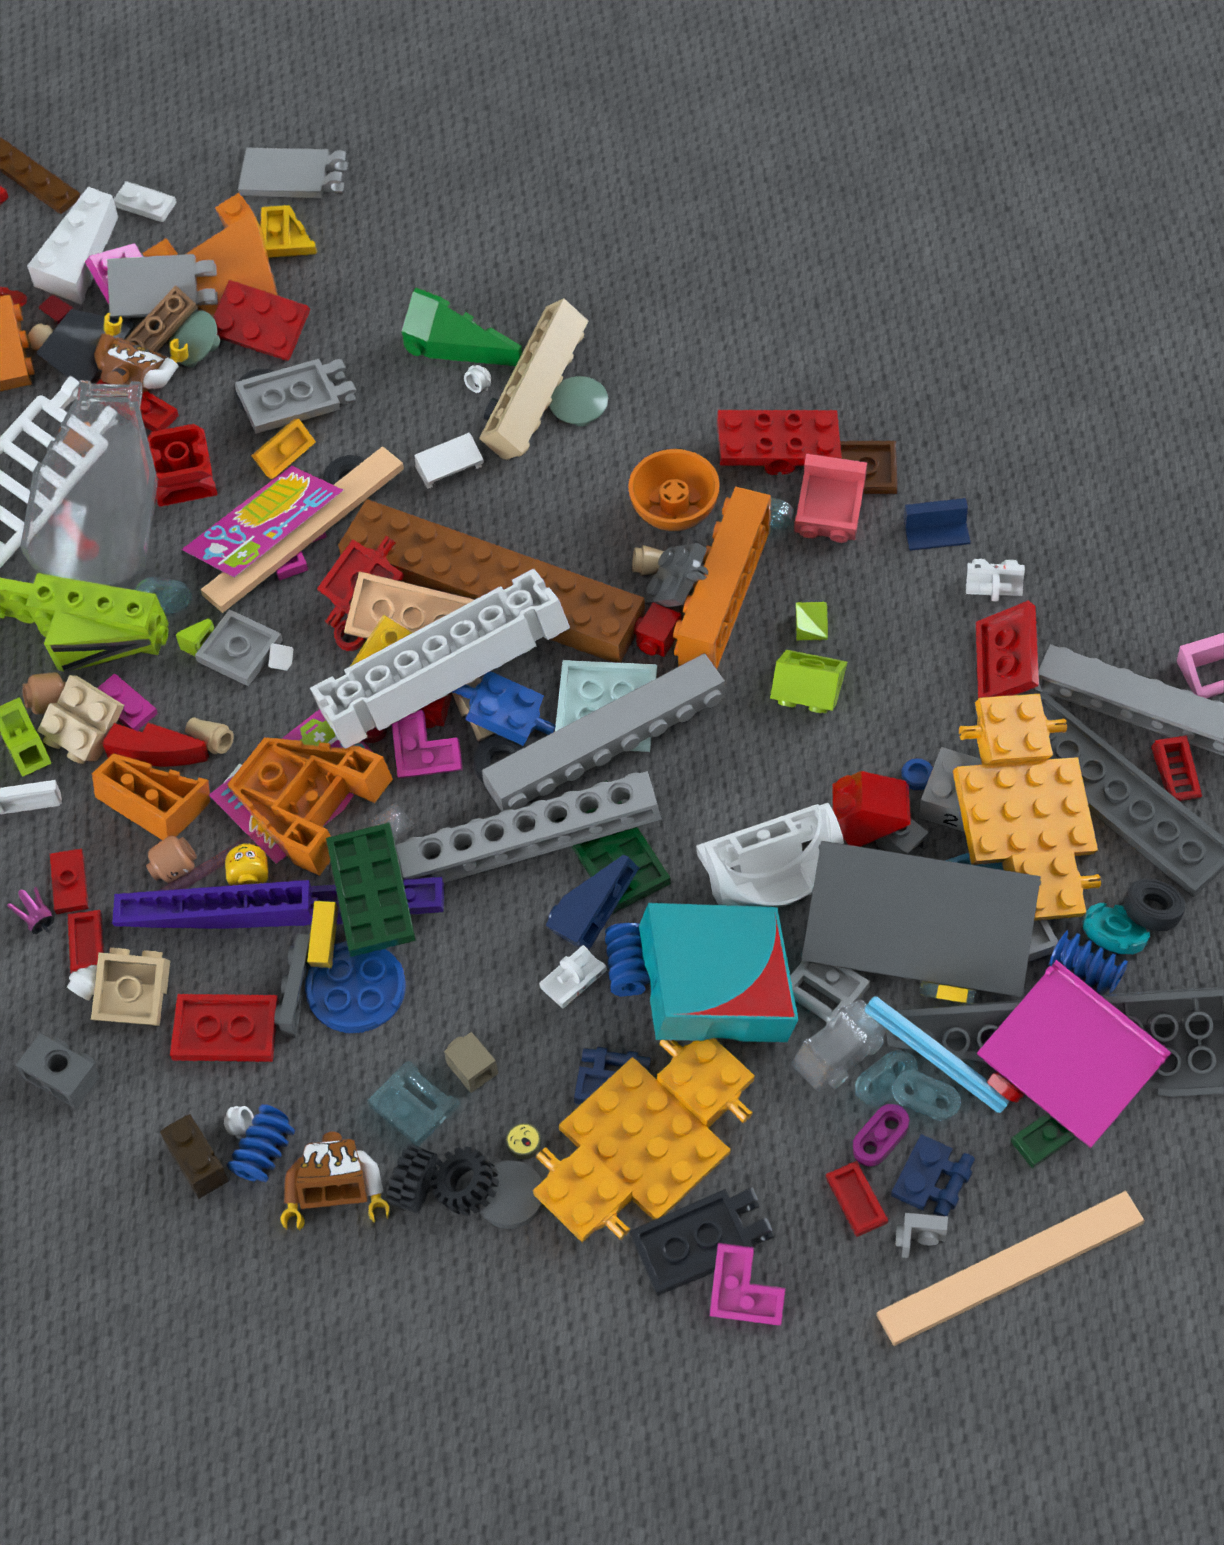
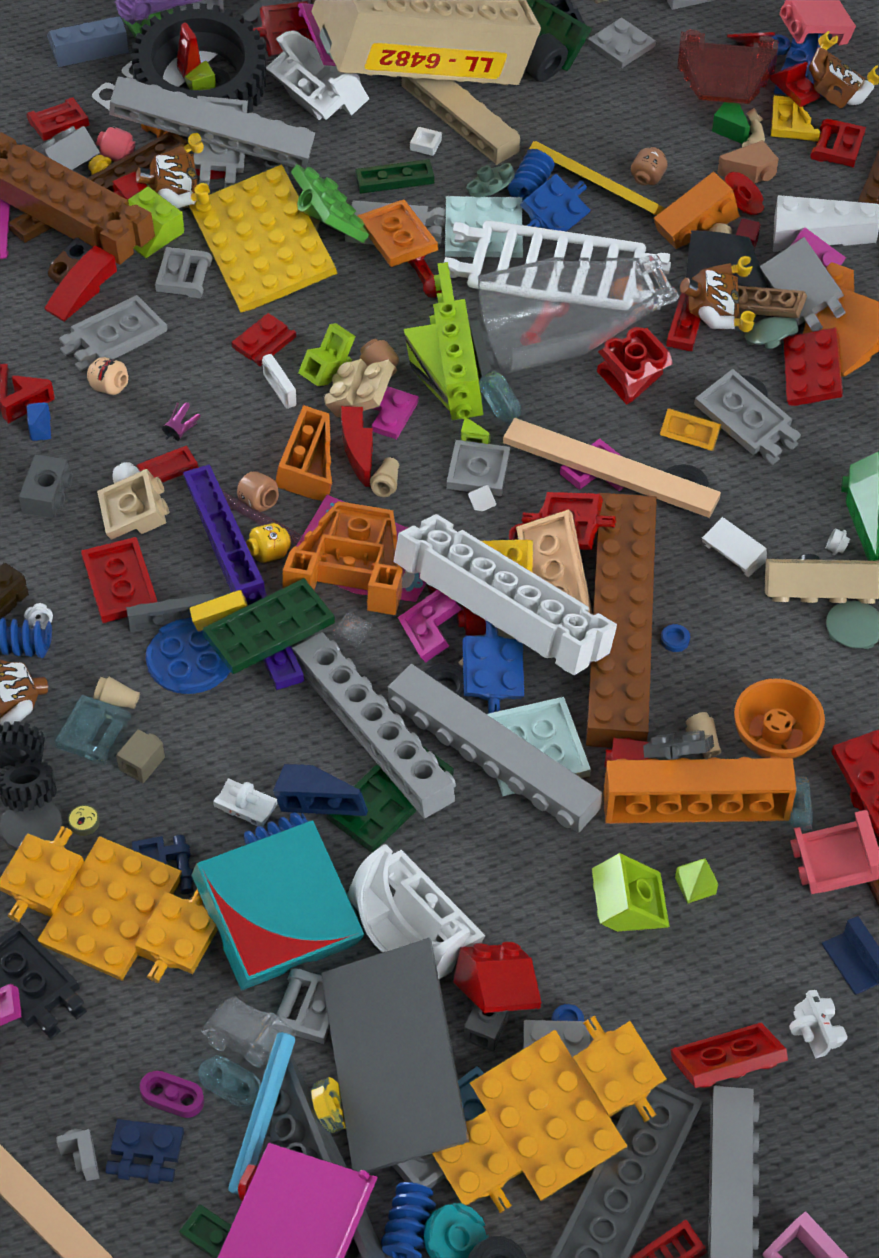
camera: 65 degrees right, 5 degrees down
(69, 881) = (218, 436): red plate -> none
(262, 521) = (607, 438): sticker -> none
(376, 1069) = (115, 693): none -> tan cone
(529, 545) = (675, 638): none -> blue tile
(856, 1198) = (105, 1094): red tile -> none
(925, 1094) = (220, 1120): clear light blue plate -> none

